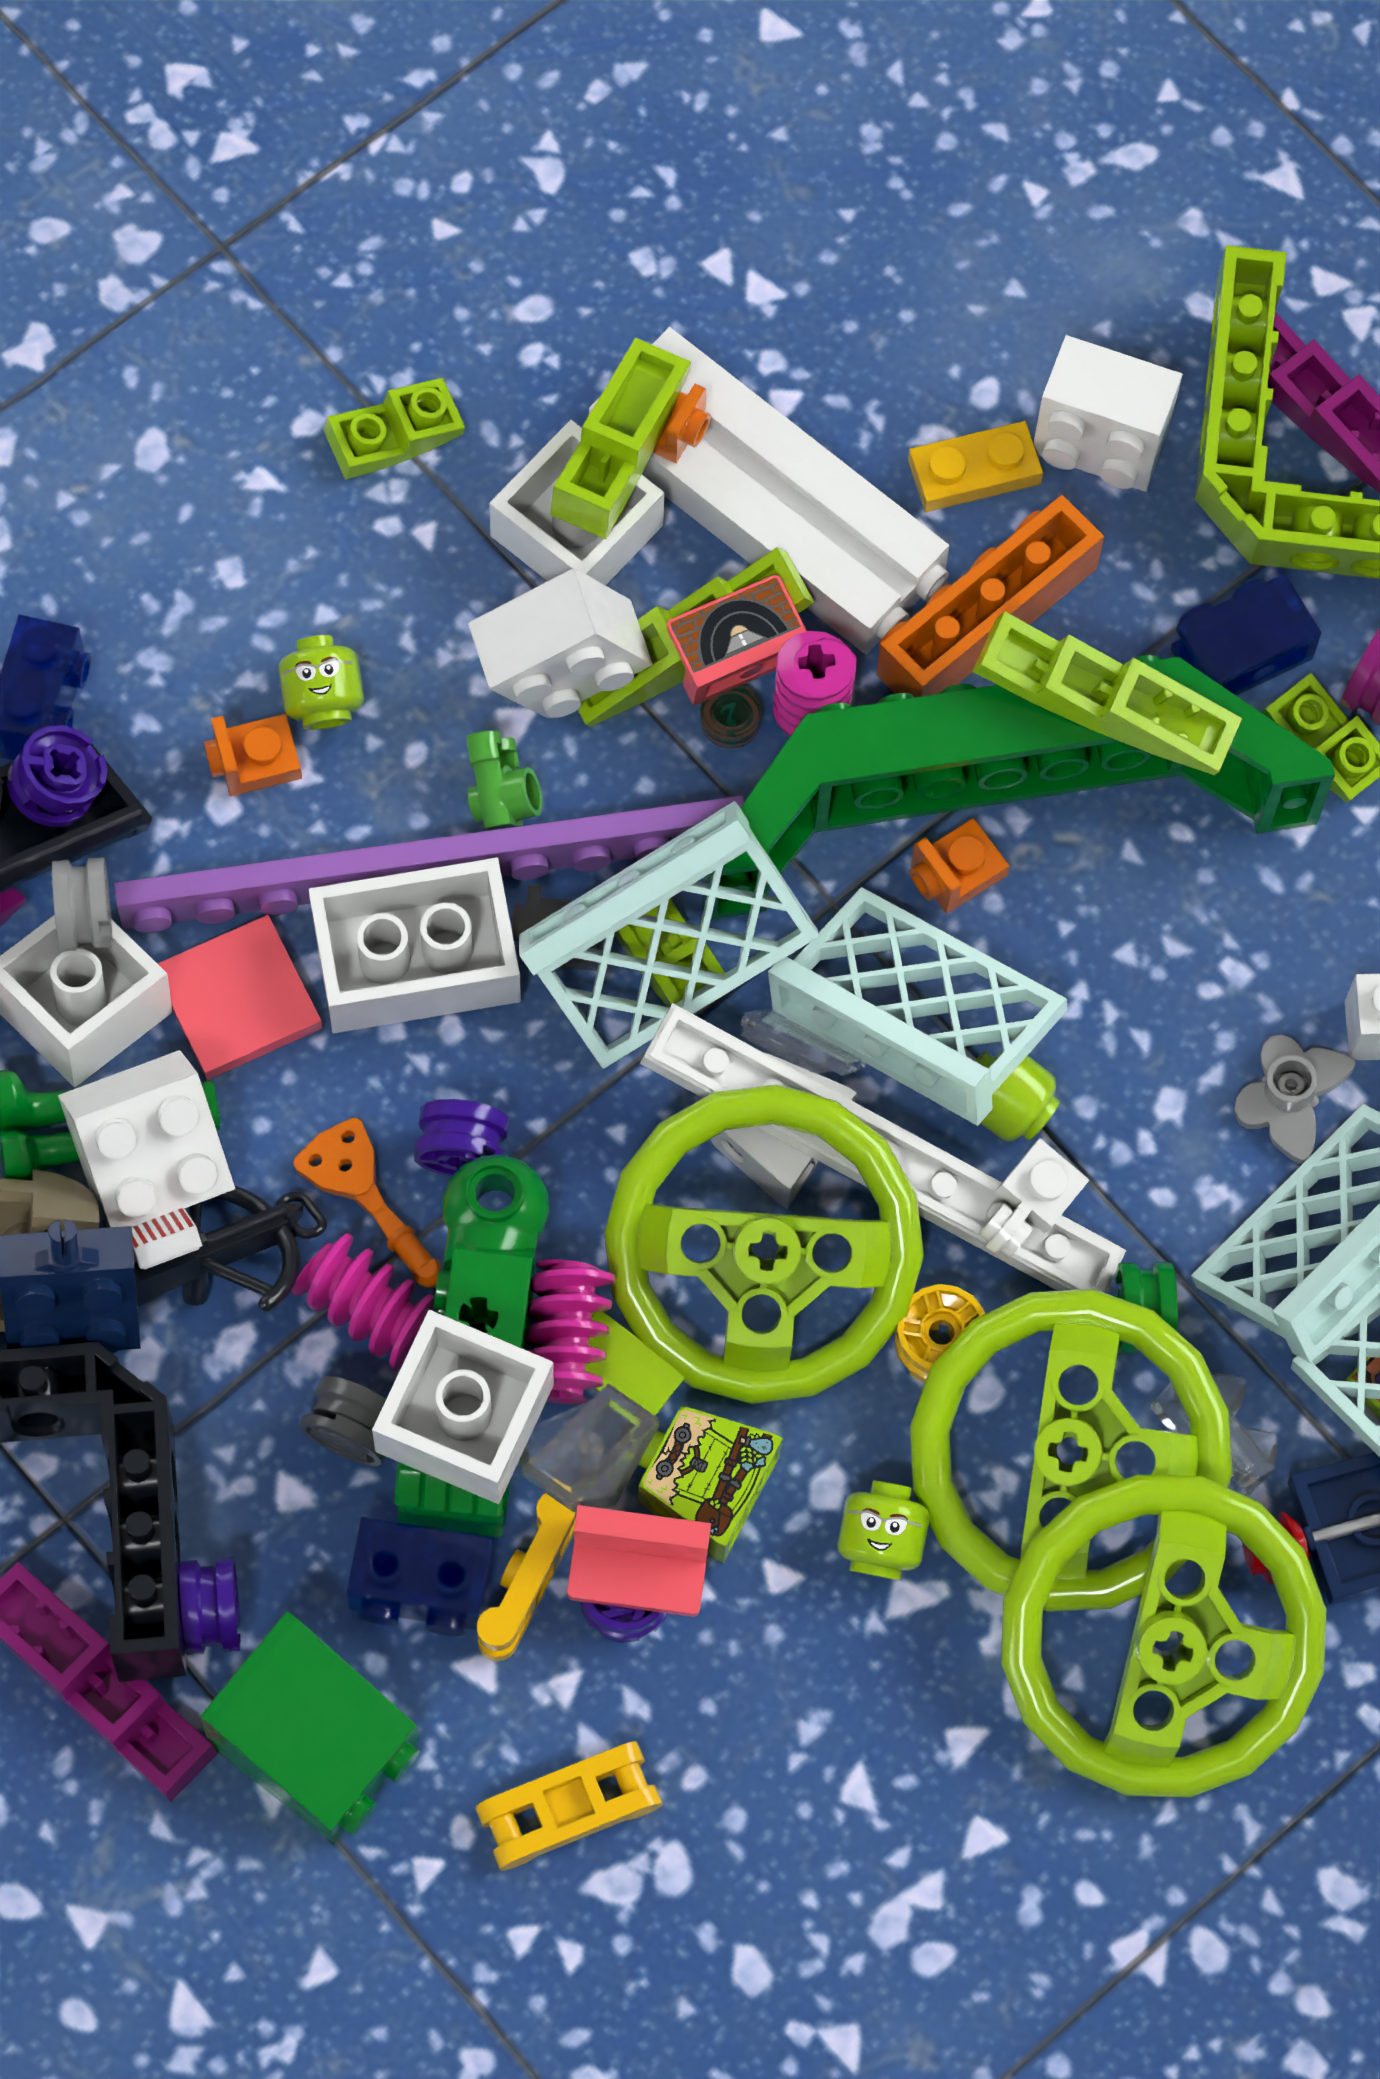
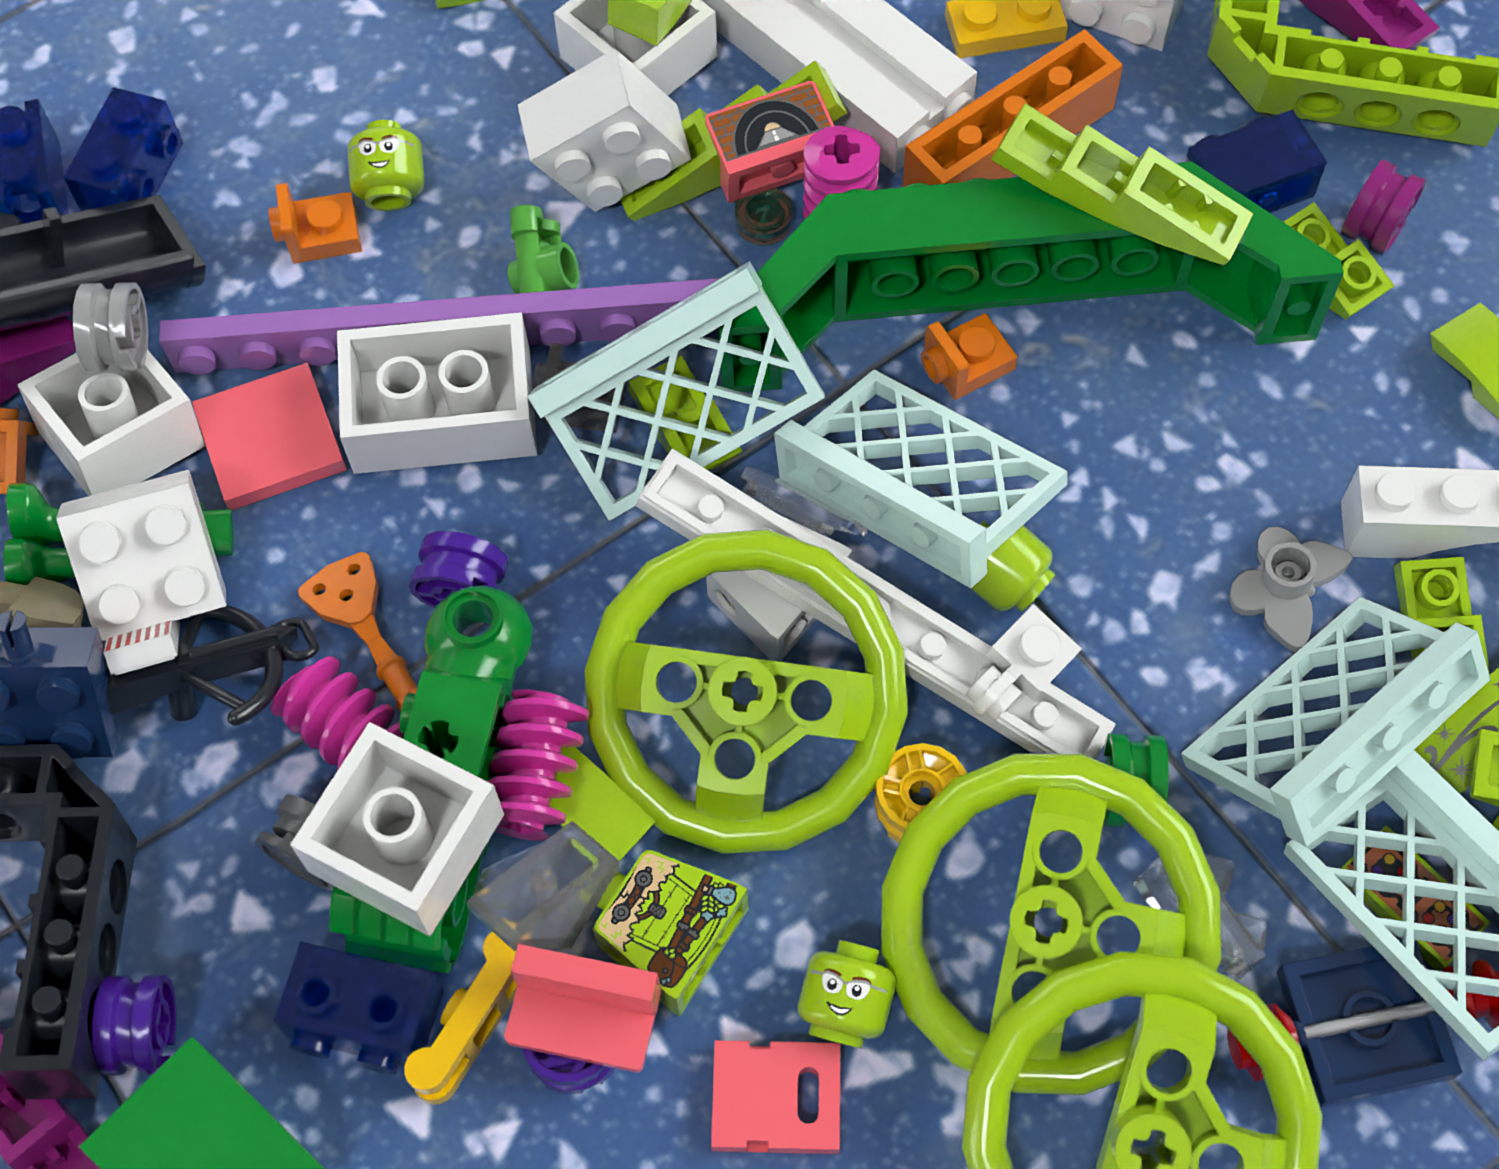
camera: 10 degrees right, 5 degrees down
(57, 774) = (117, 217): dark purple wheel -> none
(807, 1631) = (759, 1097): none -> coral piece

